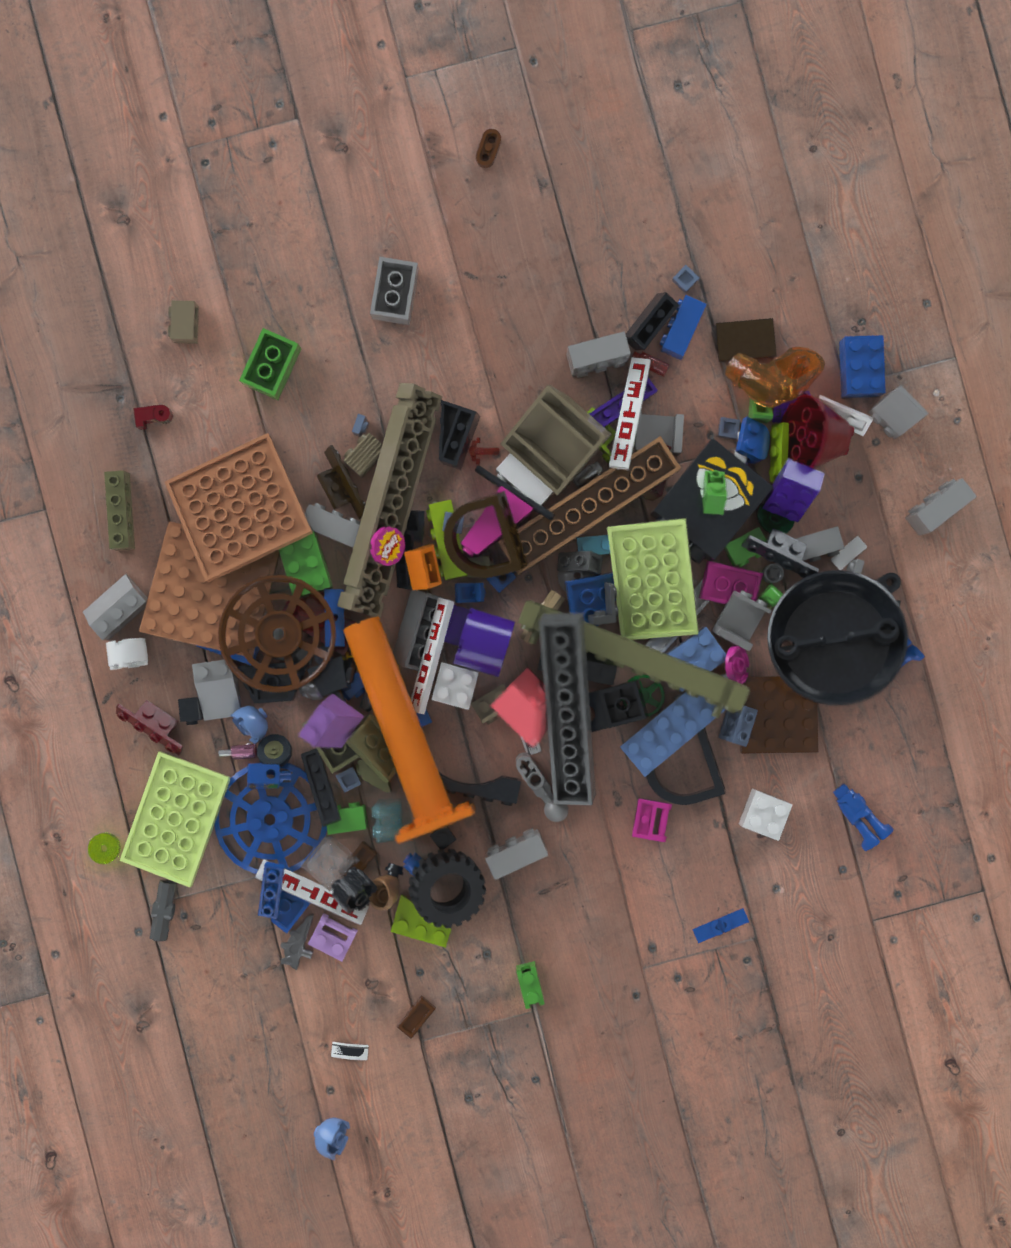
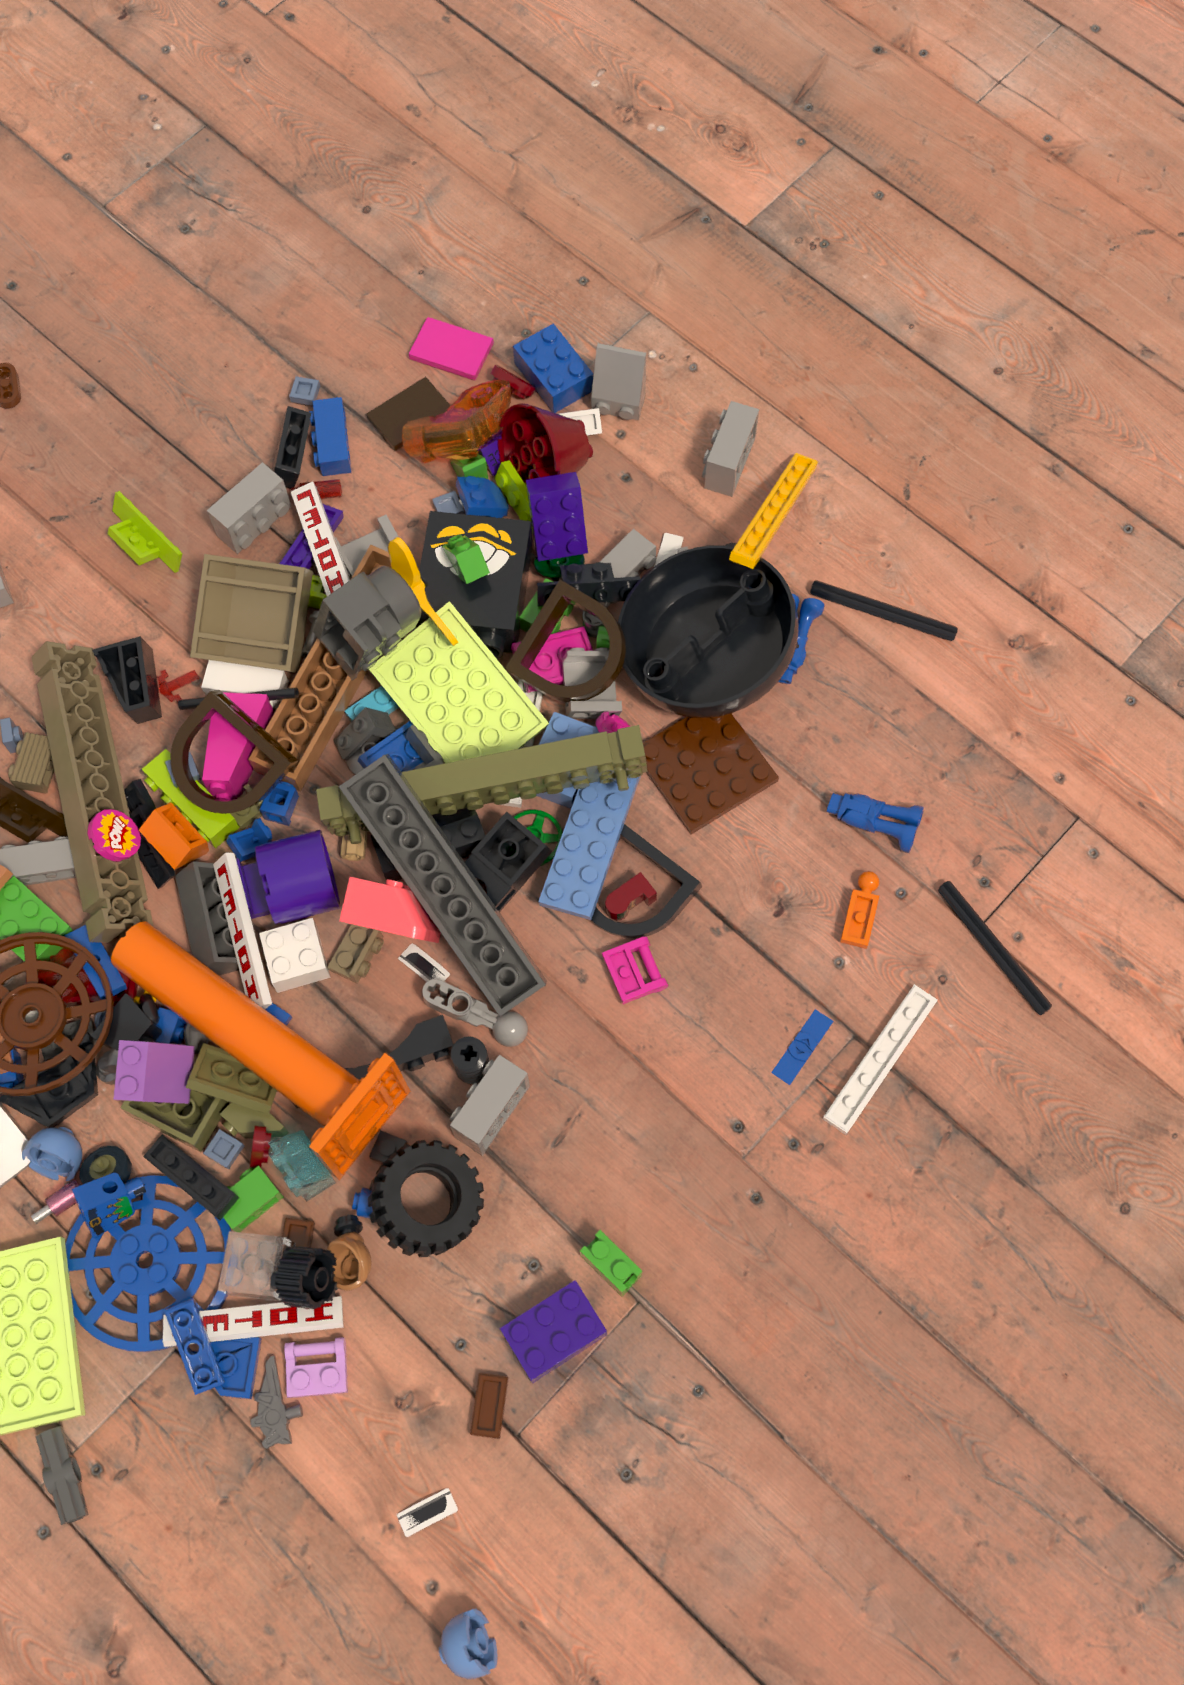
camera: 30 degrees left, 20 degrees down
(369, 794) = (260, 1146): none -> dark red plate
(412, 925) = (421, 1279): lime wing -> none
(475, 1002) = (554, 1331): none -> dark purple brick
(515, 327) = (140, 537): none -> lime bracket
(521, 827) = (469, 1059): none -> black piece
(633, 506) = (375, 612): none -> dark grey brick
(672, 772) = (628, 896): none -> dark red leg
(738, 726) = (663, 798): sand blue bracket -> none
(761, 962) = (879, 1059): none -> white tile
(765, 814) = (764, 880): white brick -> none
(778, 593) = (542, 628): none -> dark brown window
(803, 304) = (451, 348): none -> dark pink tile
(810, 869) = (861, 911): none -> orange plate
(831, 365) = (521, 387): none -> dark red plate
(874, 939) = (995, 948): none -> black axle
(936, 577) = (773, 511): none -> yellow tile
(961, 680) = (883, 610): none -> black axle

